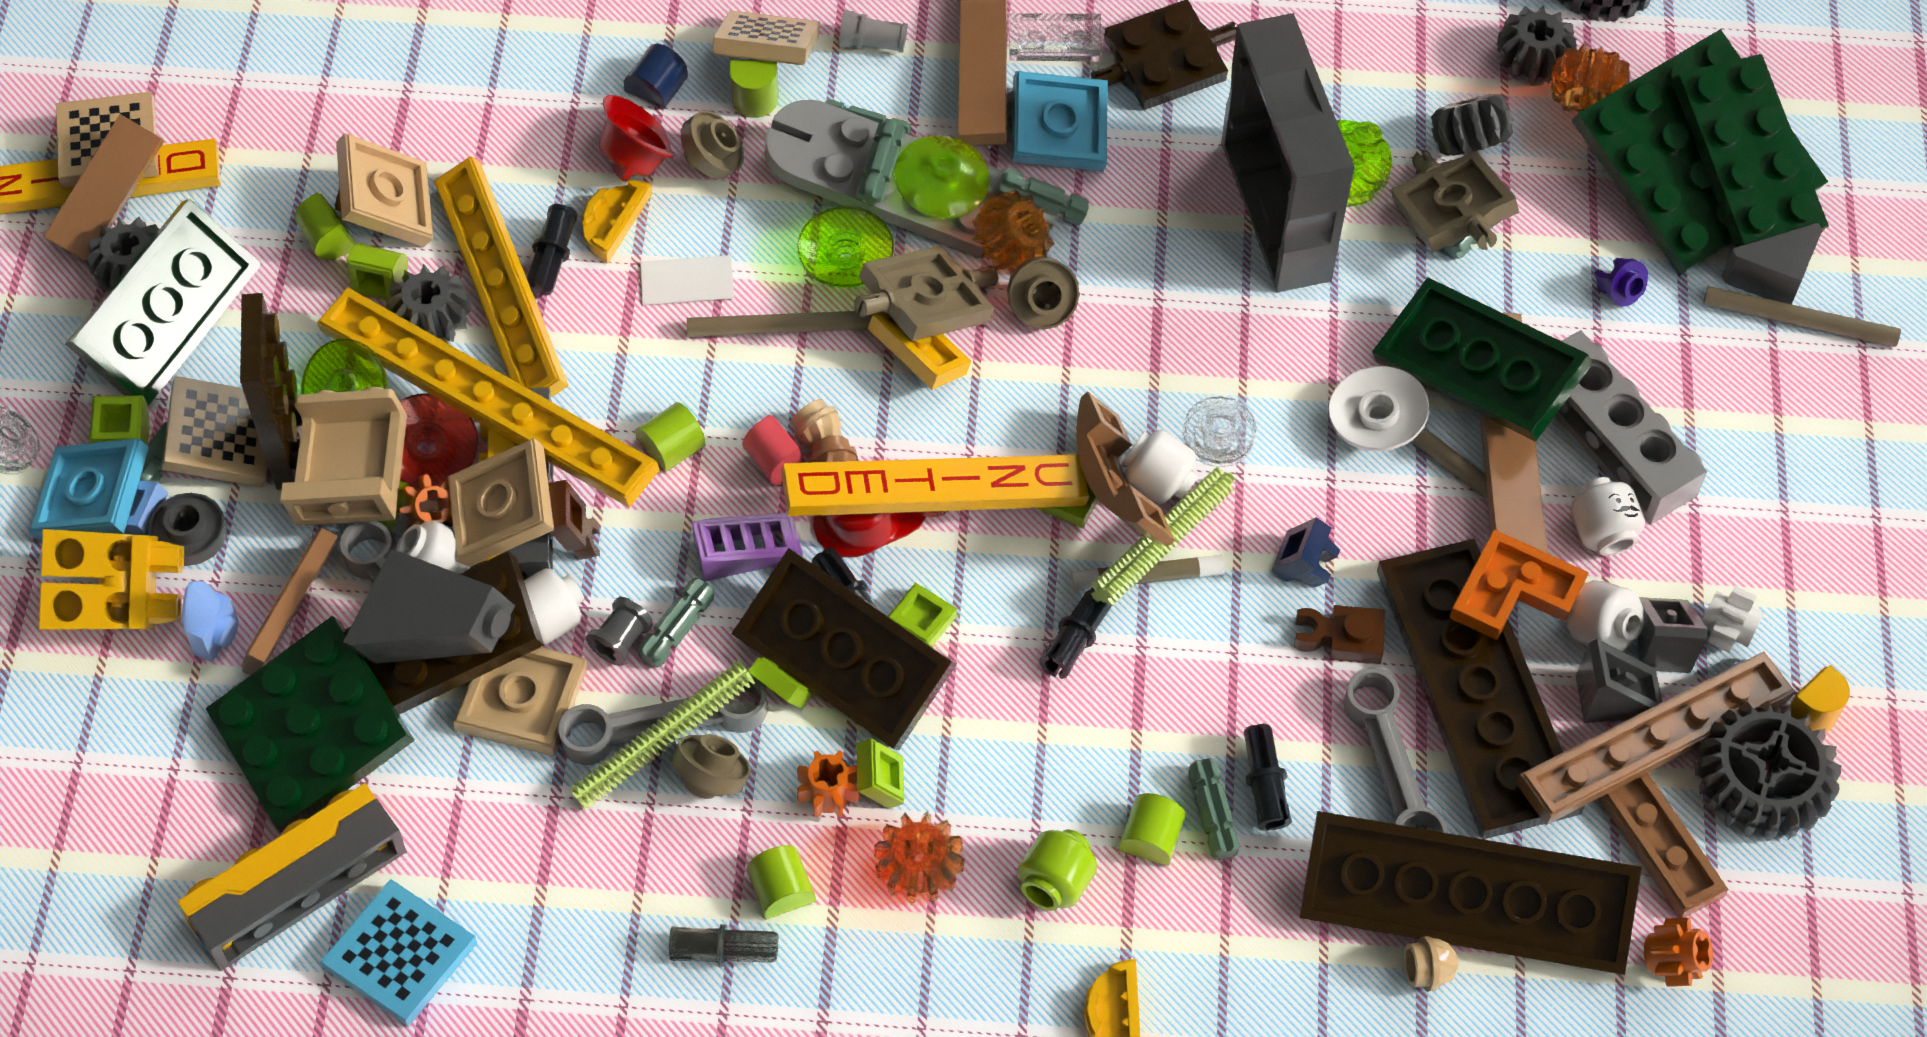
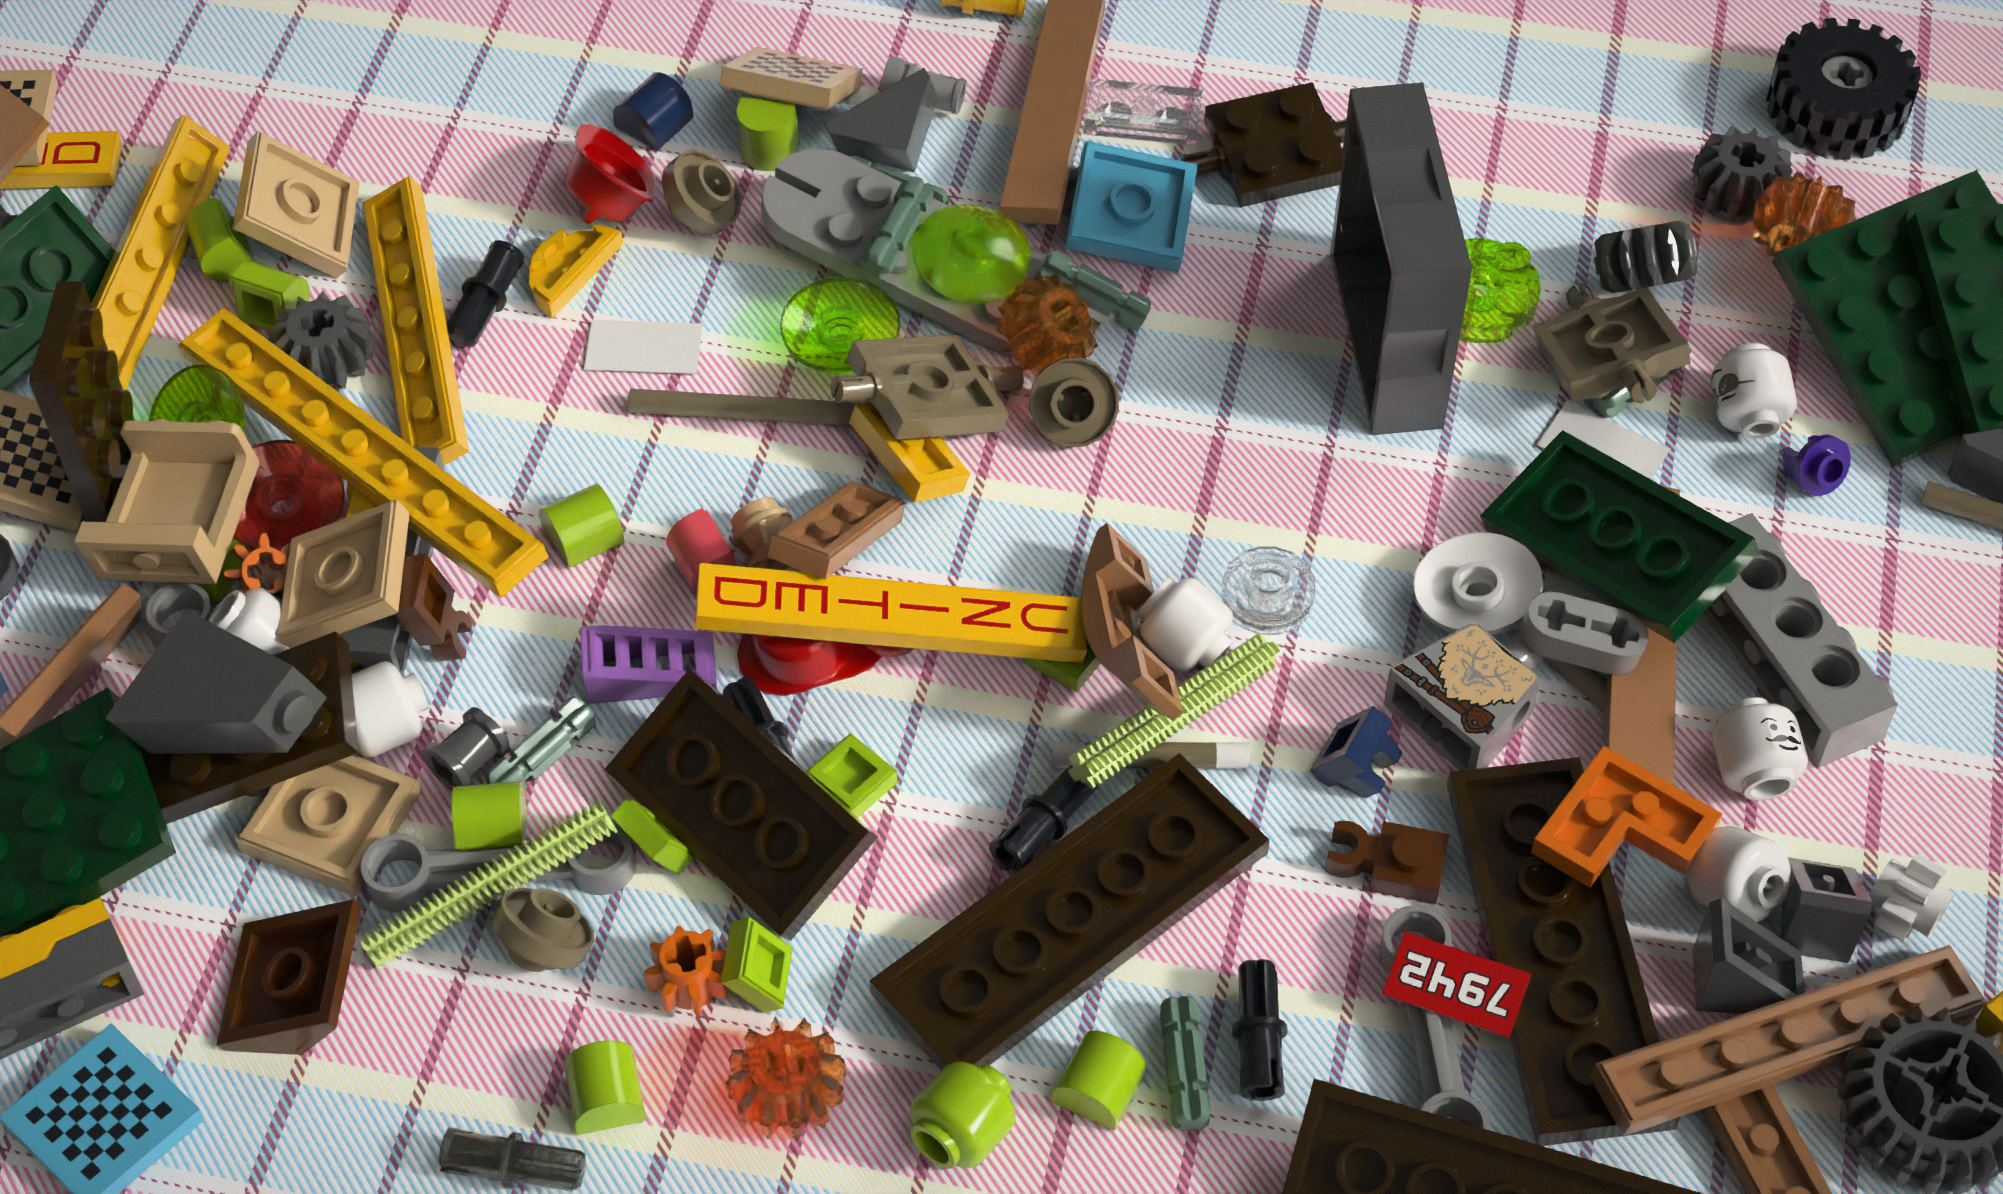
camera: 10 degrees right, 5 degrees down
(269, 229) = (156, 239): none -> yellow tile
(522, 828) = (289, 980): none -> reddish brown slope
(650, 681) = (489, 815): none -> lime brick
(852, 72) = (888, 125): none -> dark grey slope
(879, 420) = (836, 529): none -> medium nougat tile
(1109, 707) = (1069, 917): none -> dark brown plate
(1383, 497) = (1466, 694): none -> torso
(1408, 725) = (1456, 984): none -> red sticker
(1459, 276) = (1608, 437): none -> white sticker
(1466, 440) = (1584, 633): none -> light grey beam
(1568, 227) = (1753, 390): none -> white head

